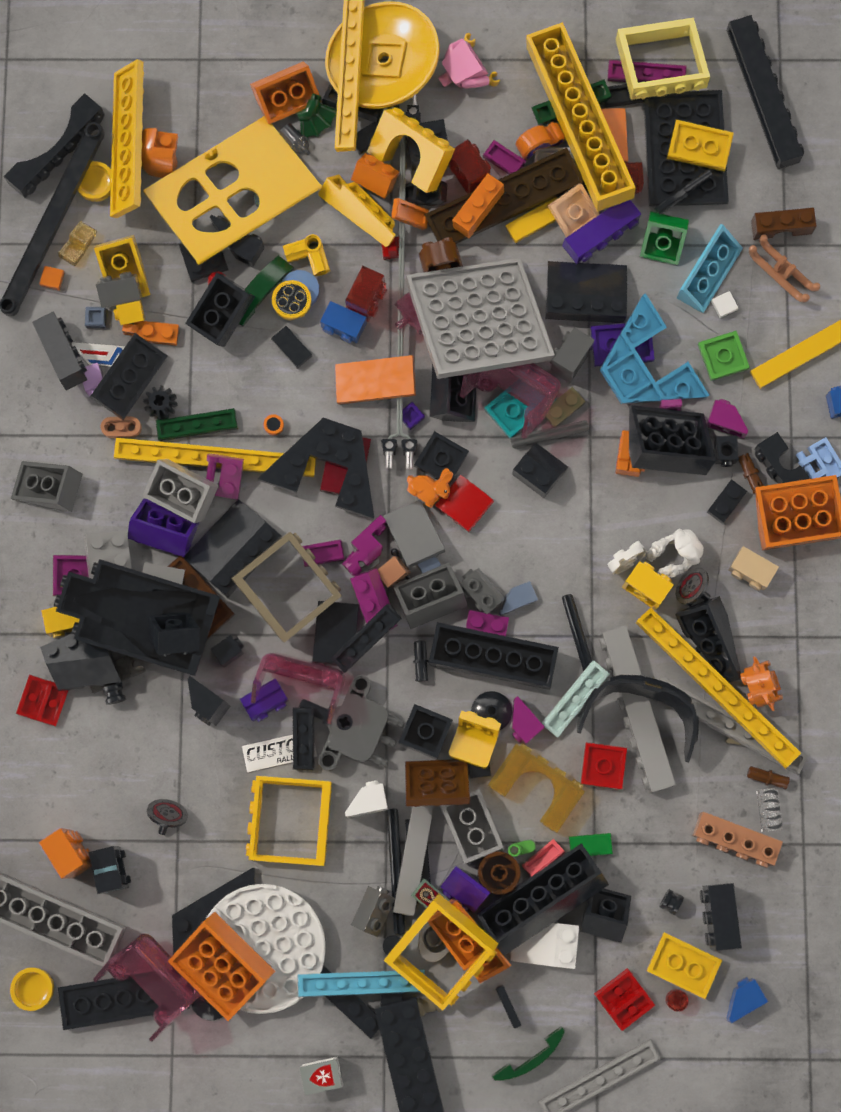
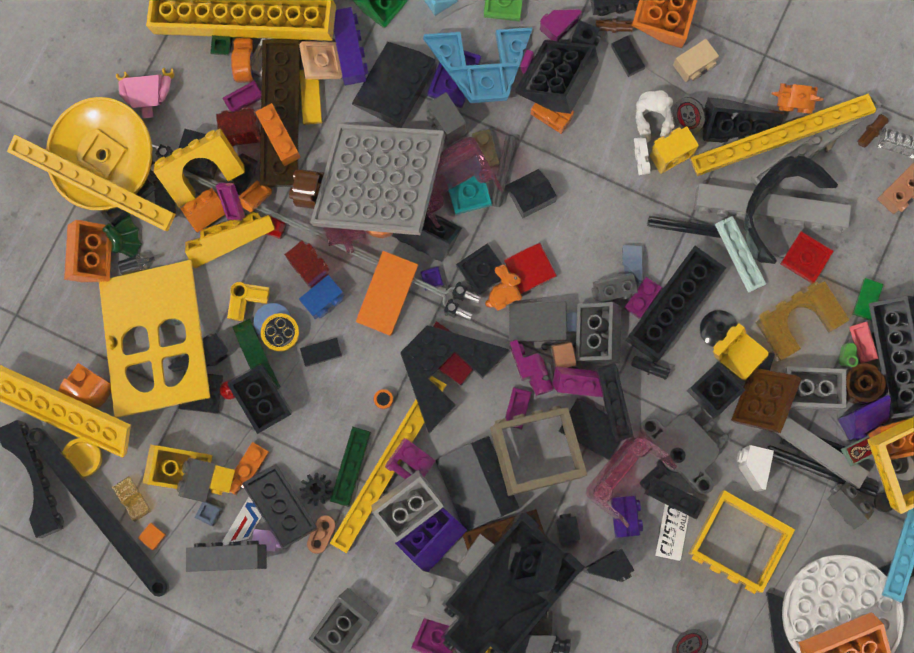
camera: 65 degrees left, 0 degrees up
(392, 193) = (230, 201): none -> magenta tile
(524, 722) = (742, 305): magenta slope -> none

